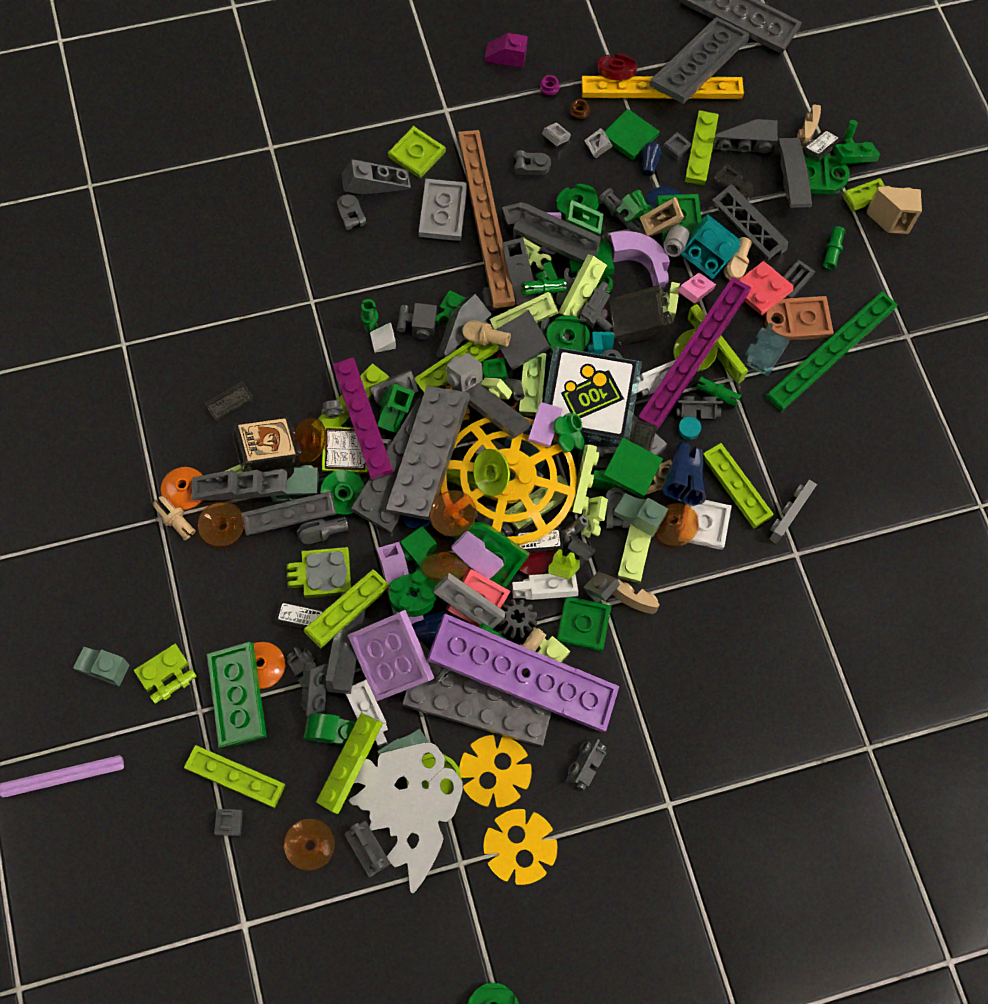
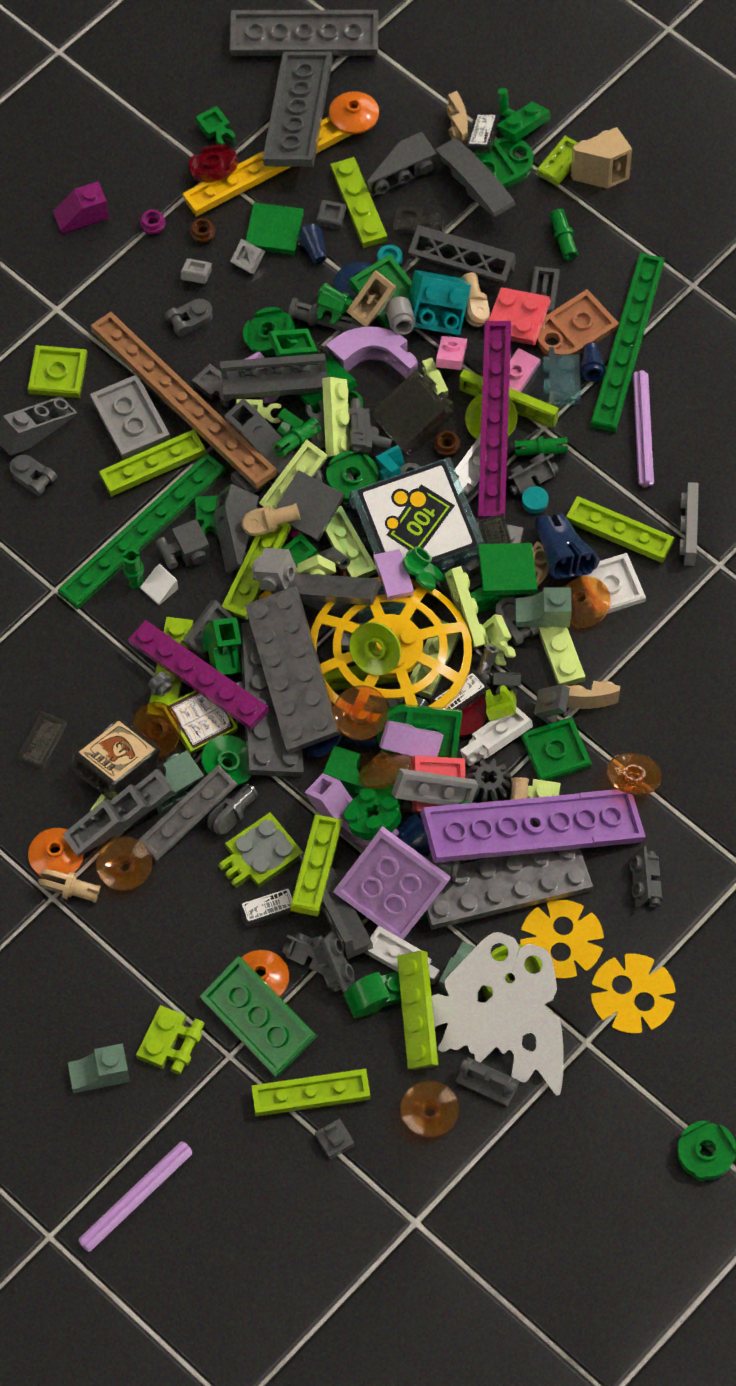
camera: 25 degrees left, 5 degrees down
(399, 293) = (142, 530): none -> green tile
(436, 249) = (152, 462): none -> lime plate
(633, 671) = (634, 773): none -> clear orange dish
(636, 42) = (216, 125): none -> green plate
(652, 346) = (447, 437): none -> reddish brown plate
(703, 195) = (393, 250): none -> teal tile
(738, 83) = (354, 120): none -> orange dish
(740, 328) = (522, 369): none -> bright pink plate
(794, 353) = (592, 365): none -> dark blue cone
(802, 421) = (643, 429): none -> lavender axle

